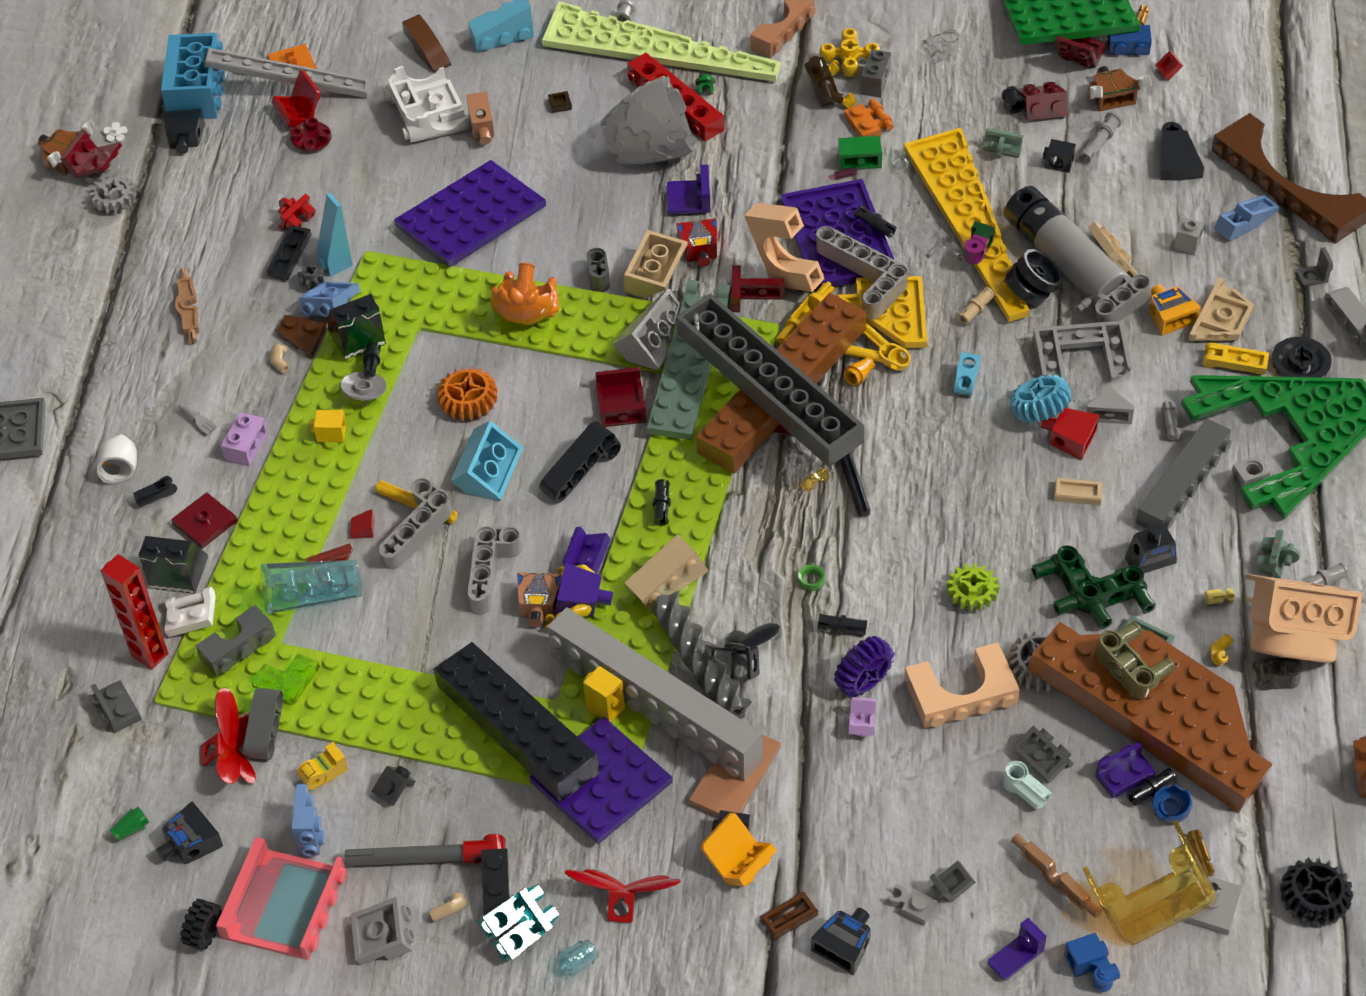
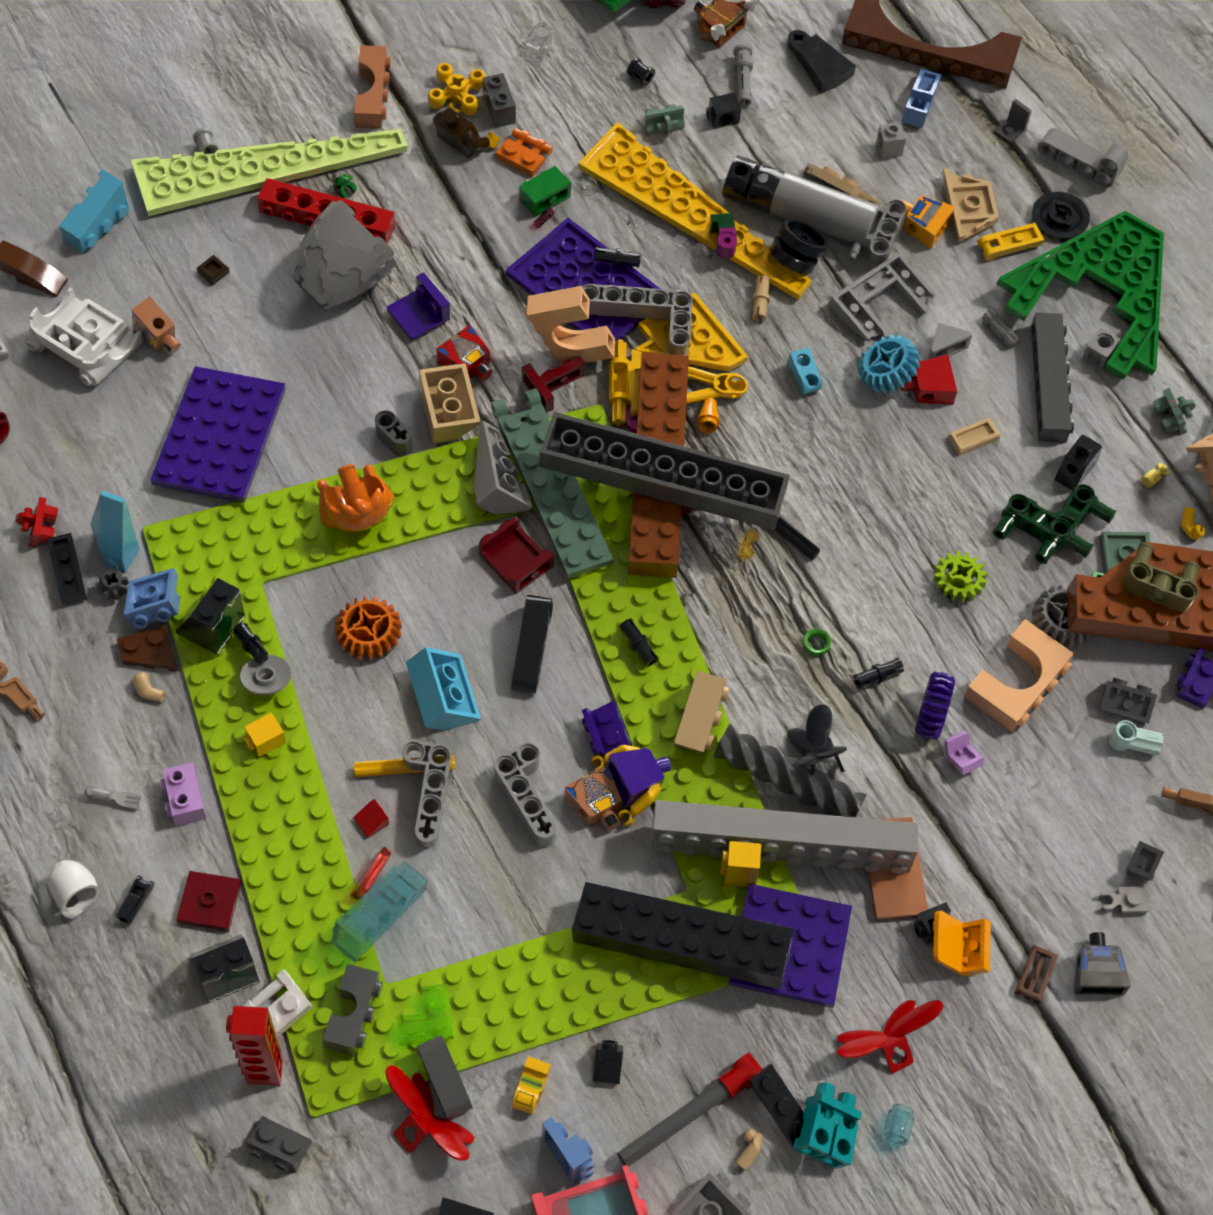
camera: 40 degrees left, 10 degrees up
(1044, 101) = (670, 58): dark red bracket -> none

